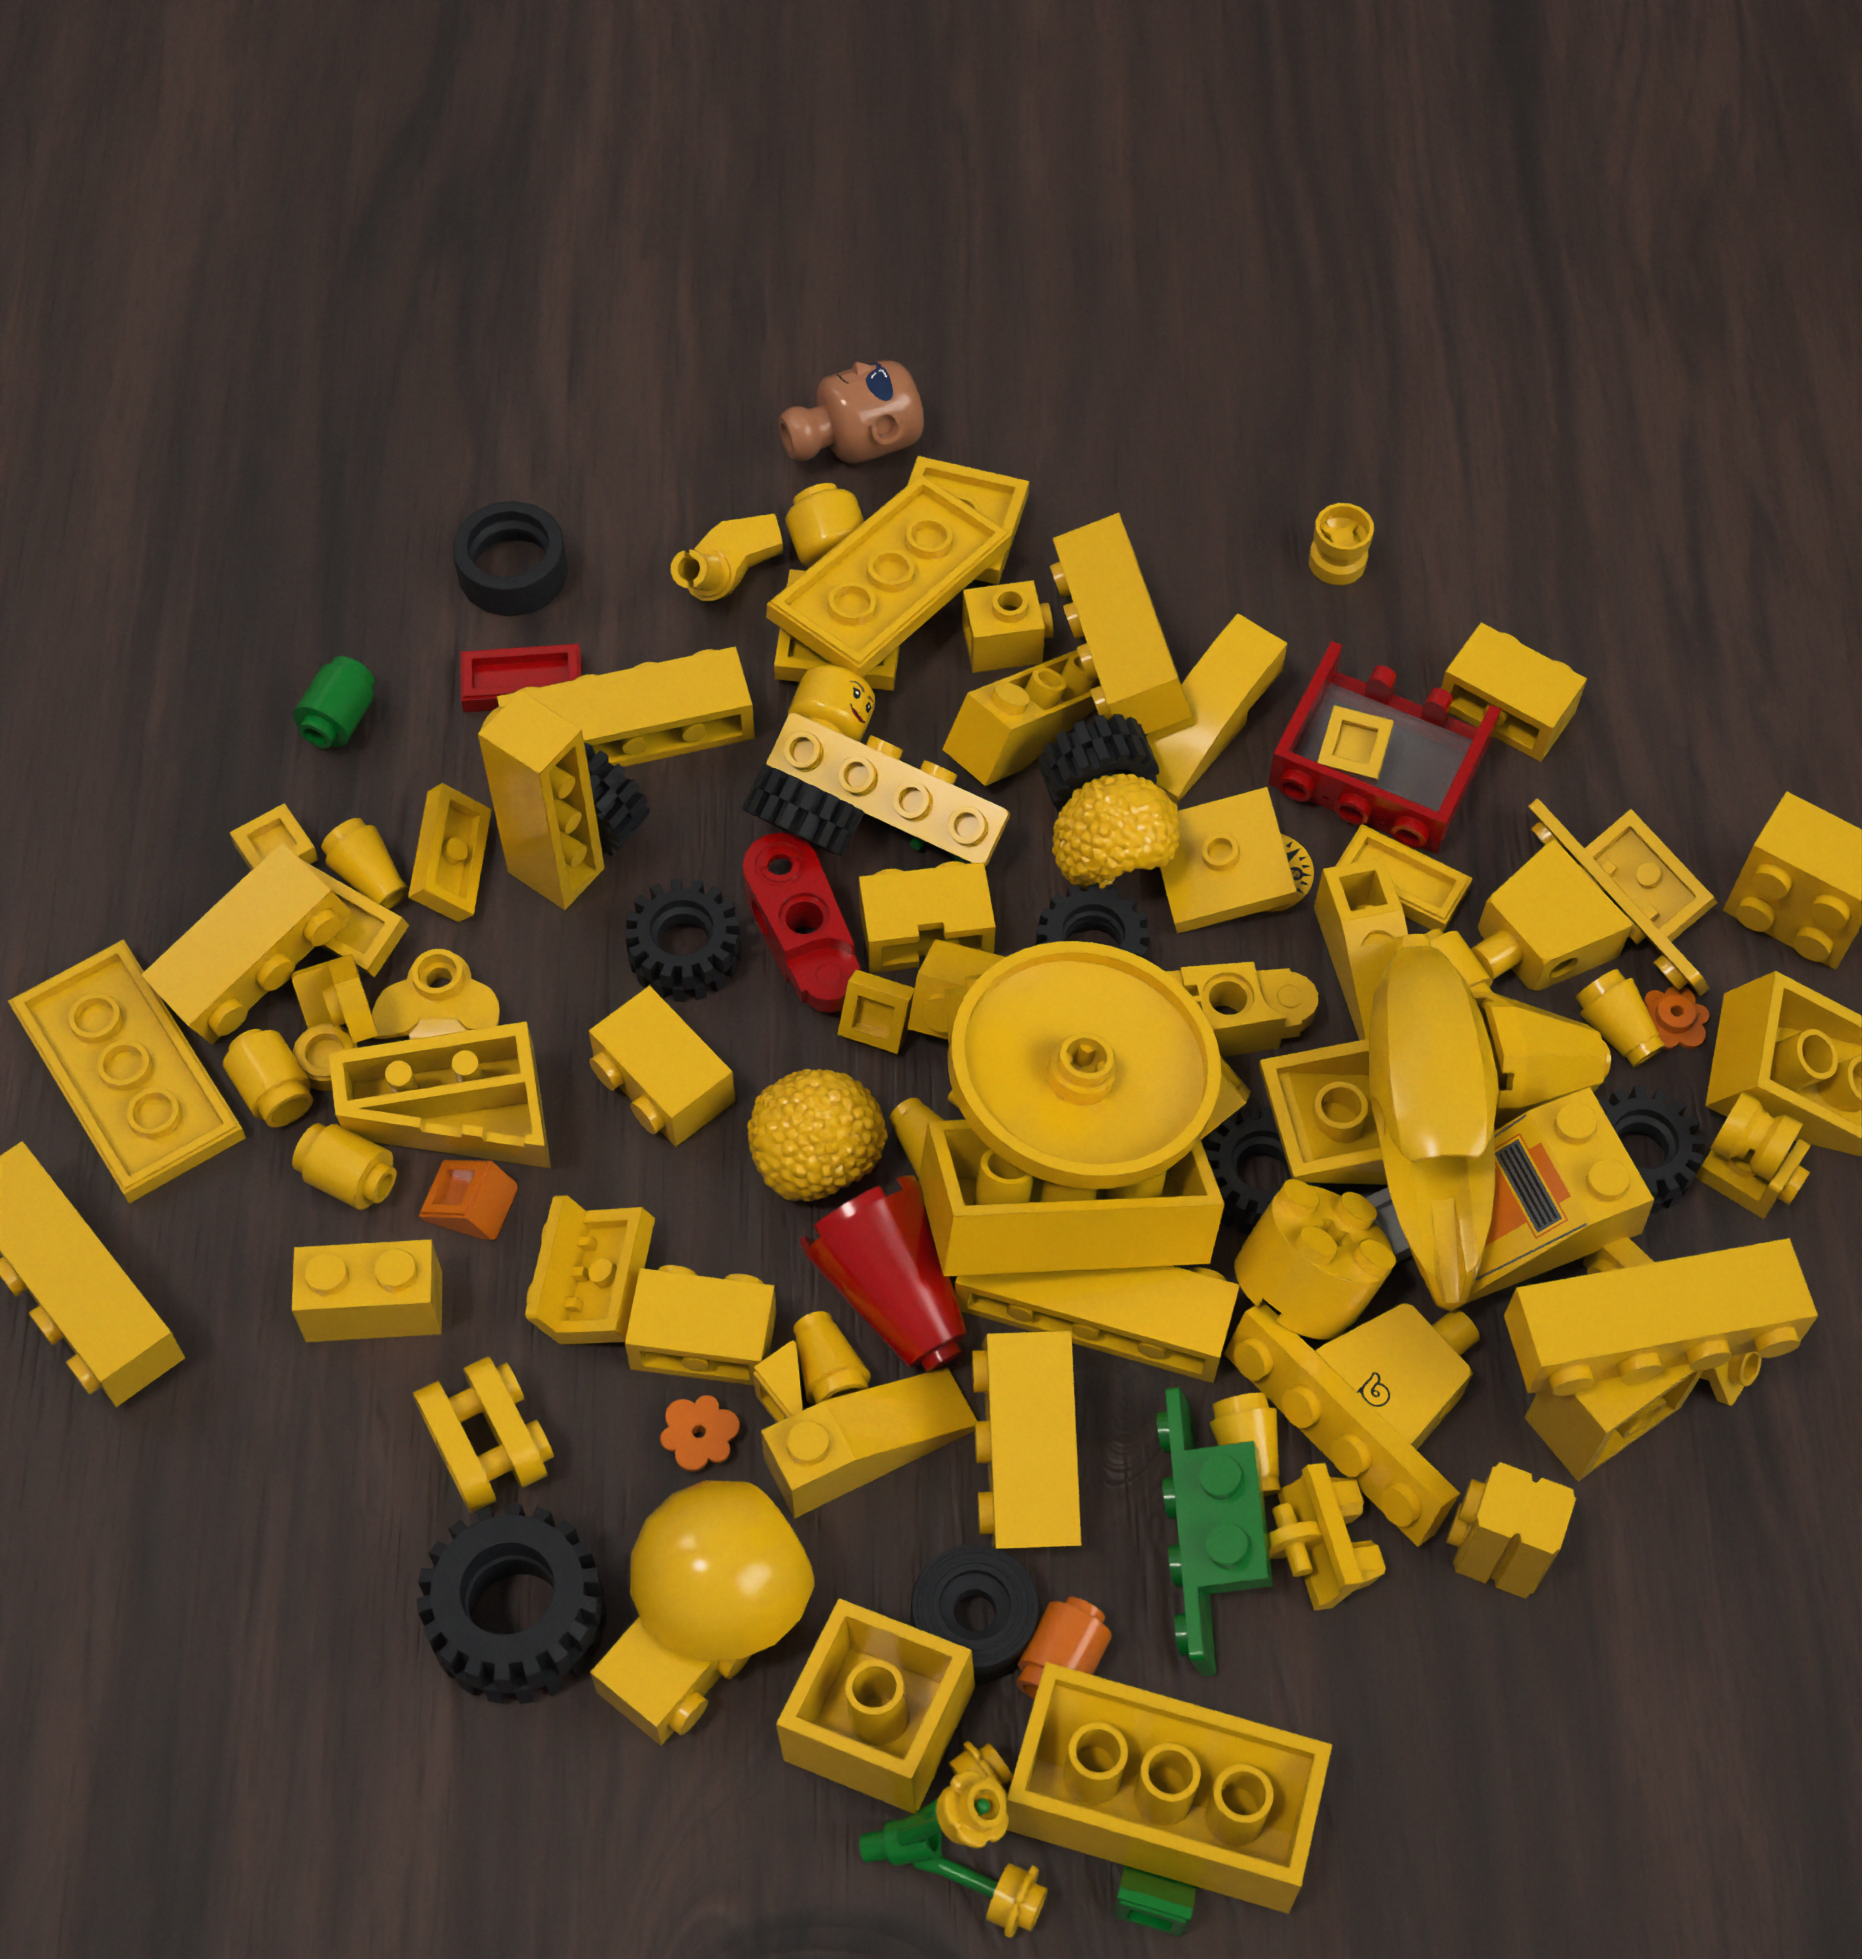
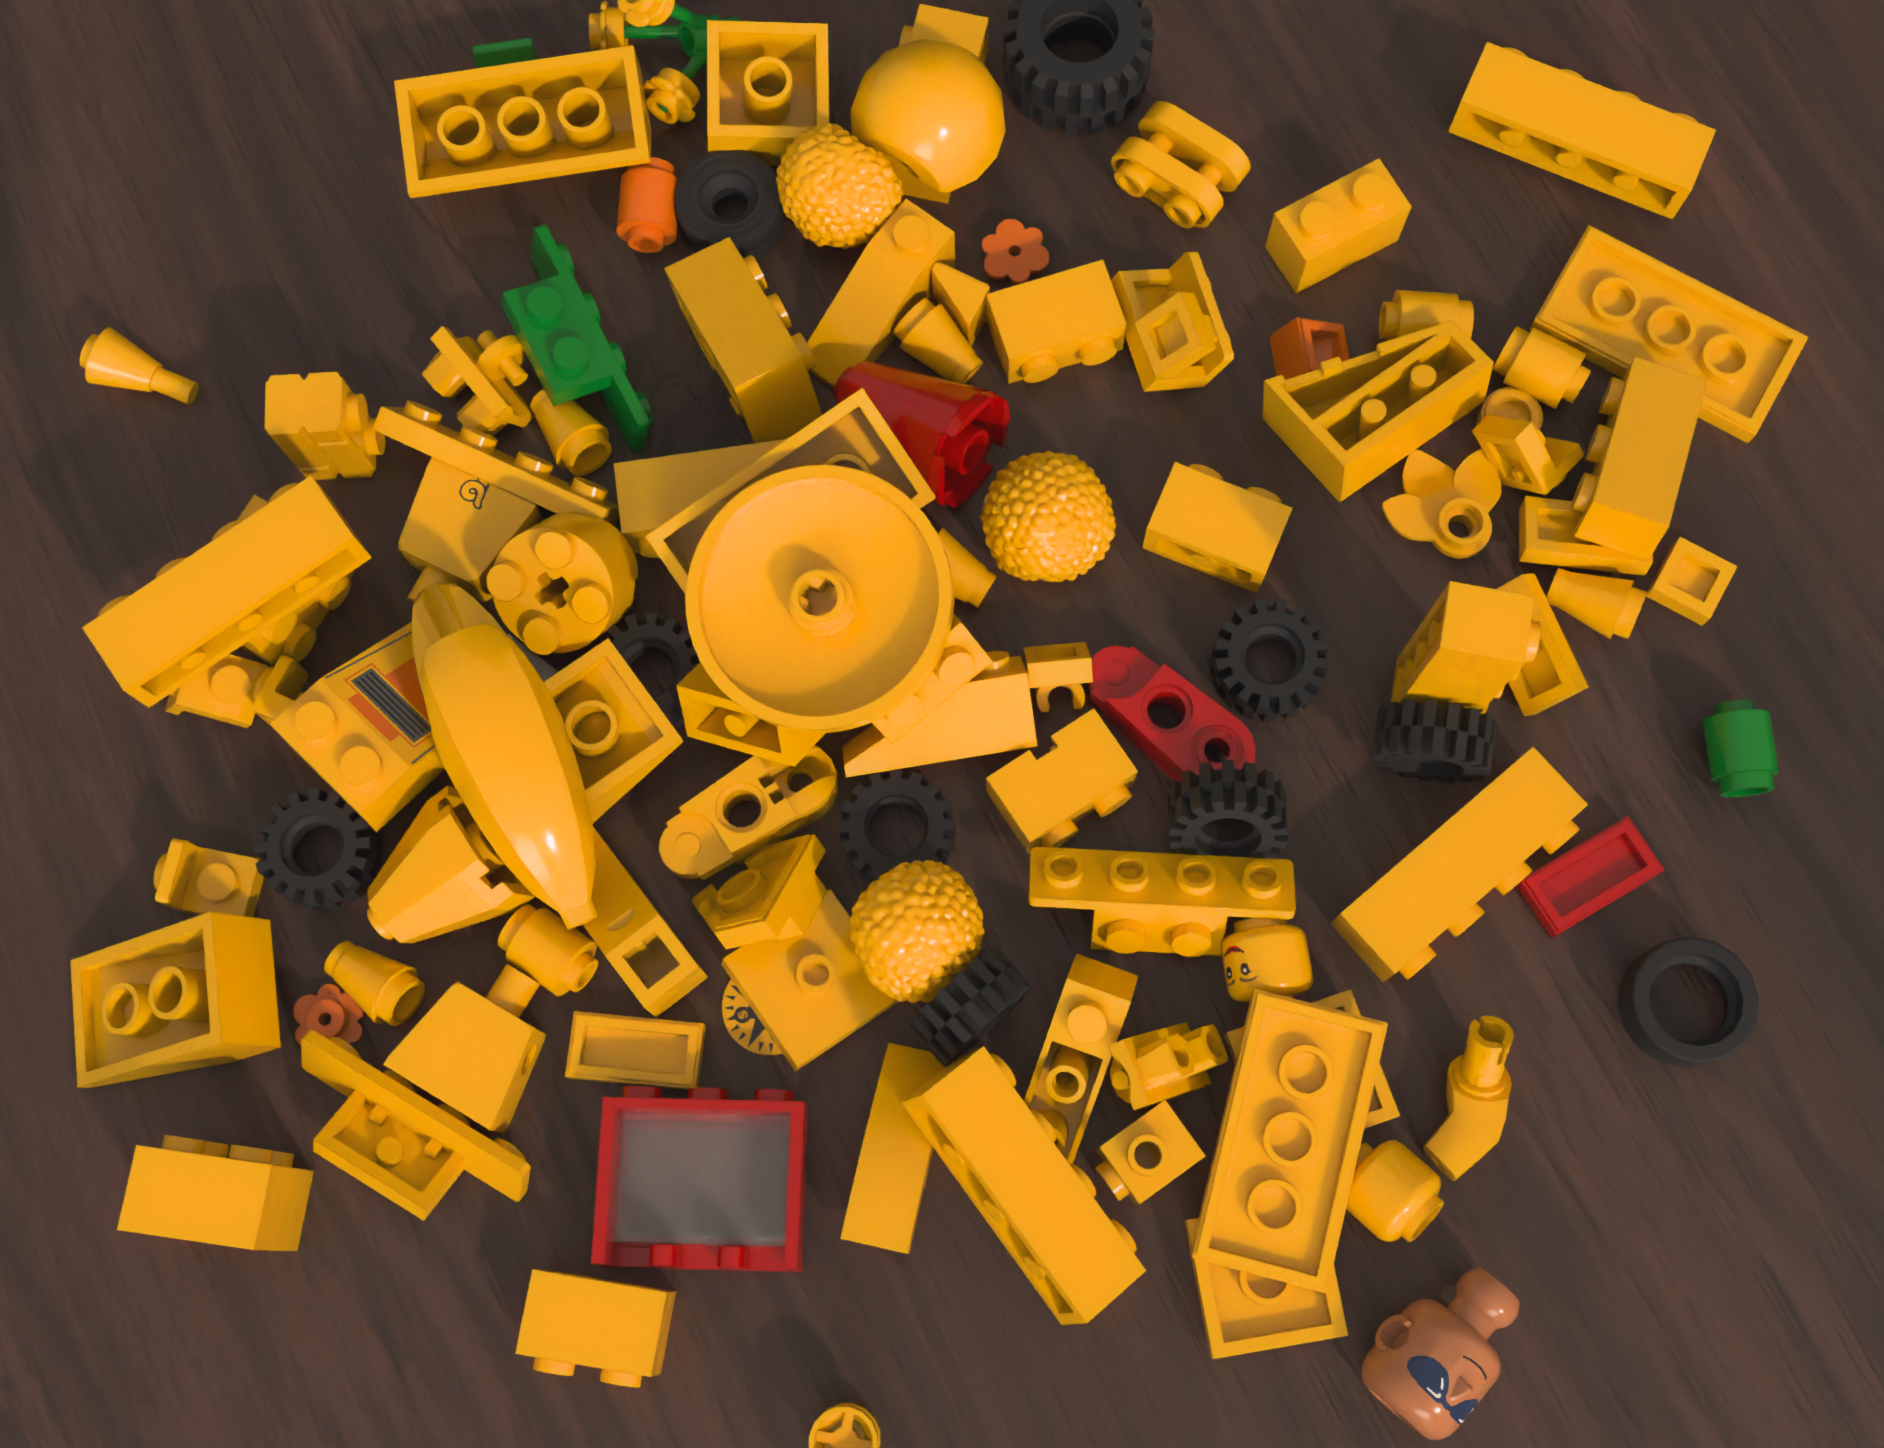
camera: 160 degrees right, 15 degrees up
(601, 1221) = (1176, 335): none -> yellow tile
(859, 1538) = (836, 187): none -> yellow hair
(963, 663) = (1164, 1063): none -> yellow hips
(1240, 919) = (770, 897): none -> yellow plate
(1356, 743) = (727, 1155): yellow plate -> none
(1719, 1741) = (119, 363): none -> yellow cone
(1756, 1136) = (209, 879): yellow wheel -> none

